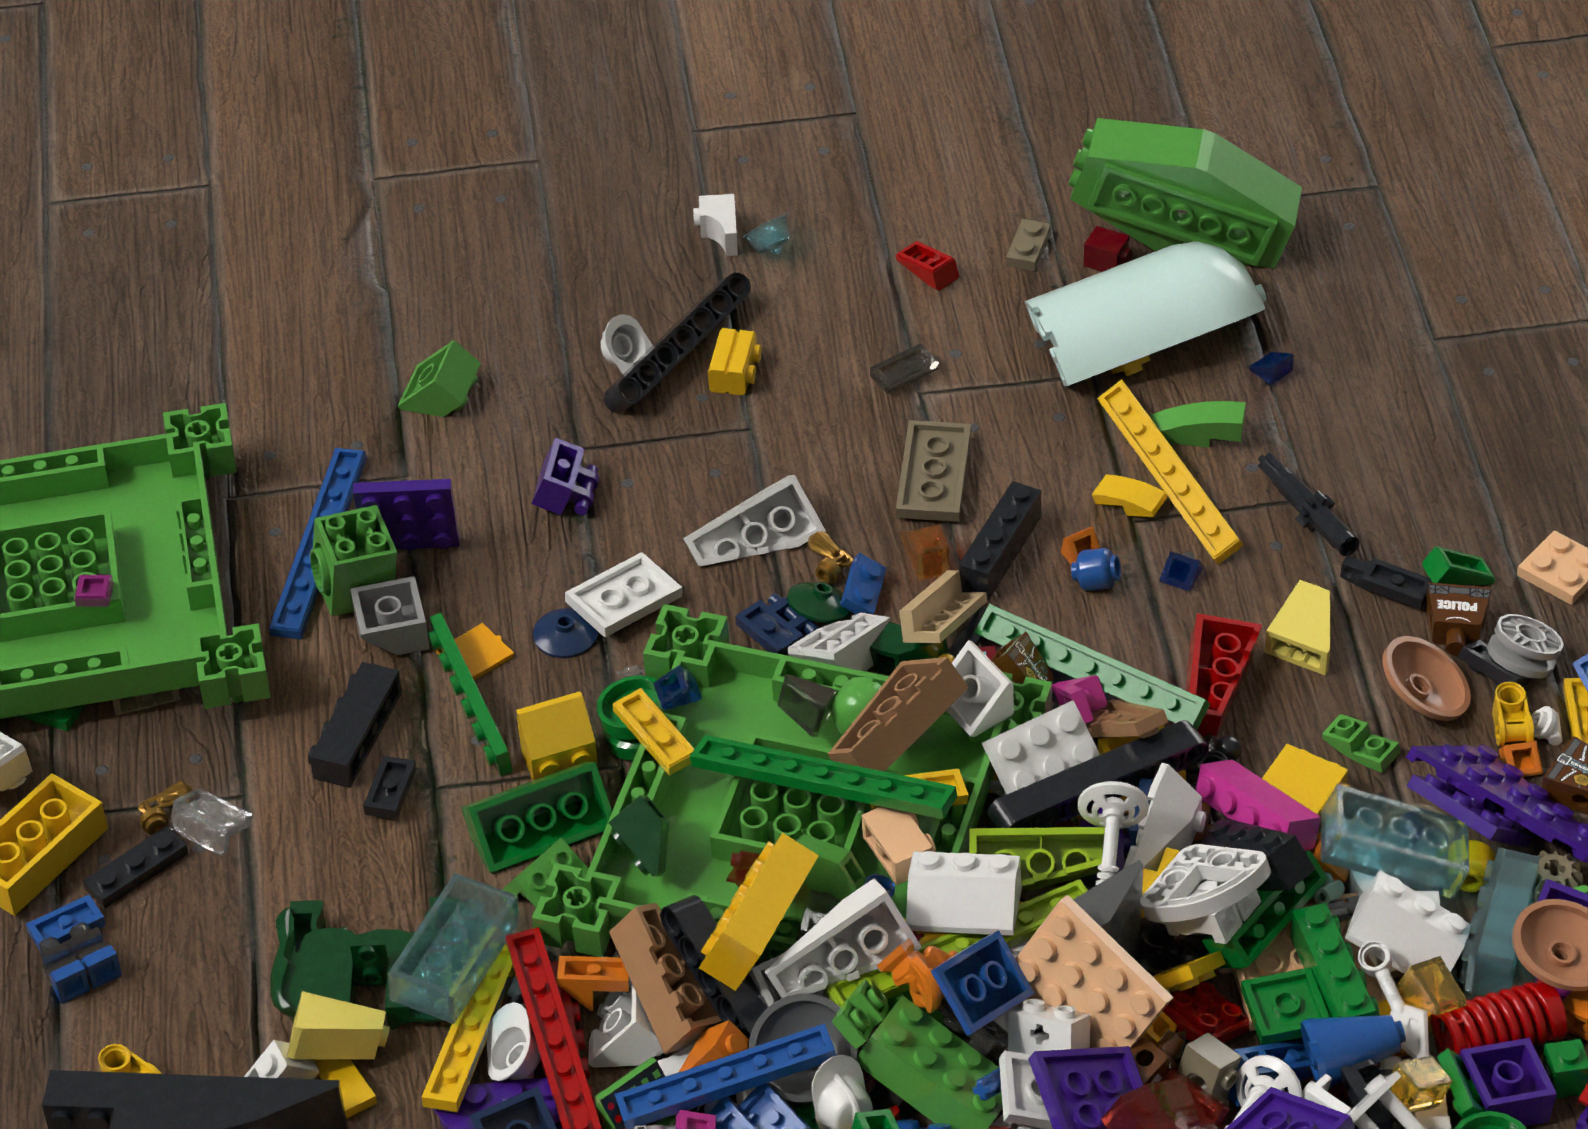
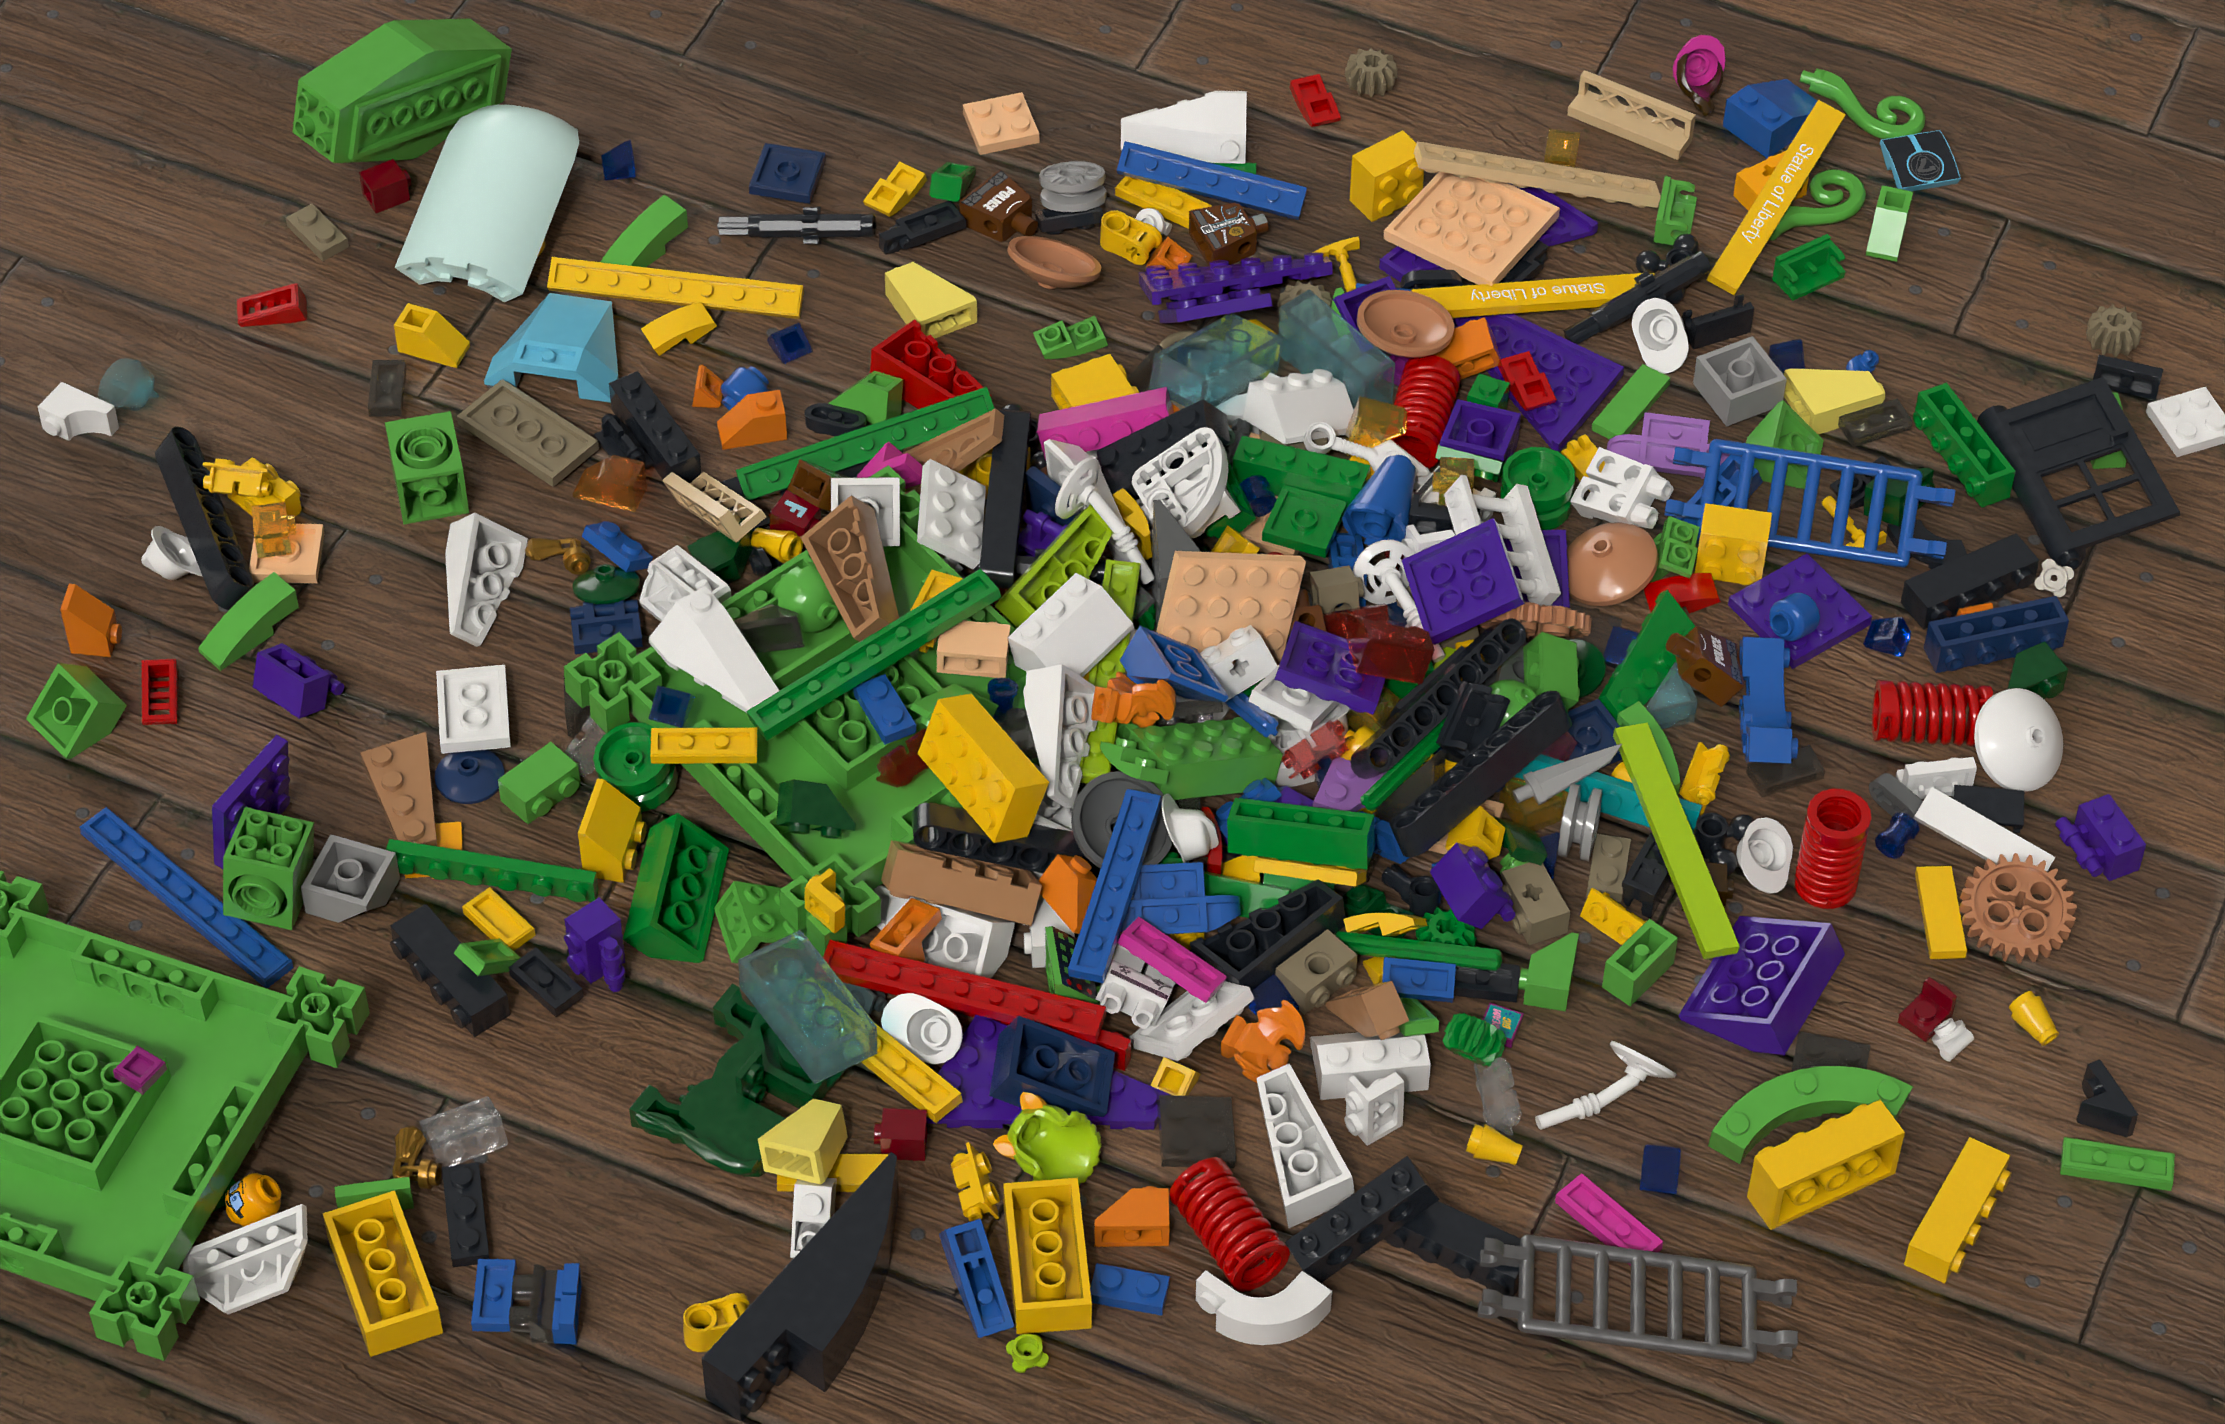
camera: 60 degrees left, 5 degrees up
(52, 733) = (252, 1199): none -> light orange head
(114, 806) = (358, 1192): none -> bright green tile
(375, 733) = (486, 956): none -> bright green tile
(399, 1093) = (902, 1133): none -> dark red brick
(433, 728) = (498, 919): none -> yellow tile
(437, 791) = (596, 944): none -> dark purple brick
(501, 405) = (159, 669): none -> red slope
(513, 603) = (404, 787): none -> medium nougat wing
(518, 338) = (89, 623): none -> orange slope
(554, 889) = (824, 902): none -> yellow bracket
(580, 669) = (539, 783): none -> bright green brick
(603, 424) = (249, 621): none -> bright green slope
(688, 407) = (298, 567): none -> light nougat plate
(689, 380) = (273, 529): none -> clear yellow brick
(719, 337) = (251, 478): none -> yellow hinge
(751, 679) = (710, 647): none -> white wedge
(792, 817) = (884, 709): none -> blue plate
(831, 429) = (427, 467): none -> bright green brick
(969, 529) = (619, 441): none -> black hinge
(972, 359) = (429, 336): none -> yellow slope
(1042, 441) = (562, 340): none -> medium azure wedge
(1072, 595) = (754, 421): none -> orange slope
(1117, 640) = (833, 419): none -> black plate
(1158, 650) = (874, 395): none -> bright green slope
(1281, 955) = (1258, 495): none -> clear blue wheel
(1362, 467) = (787, 173): none -> dark blue plate
(1404, 544) = (896, 191): none -> yellow slope

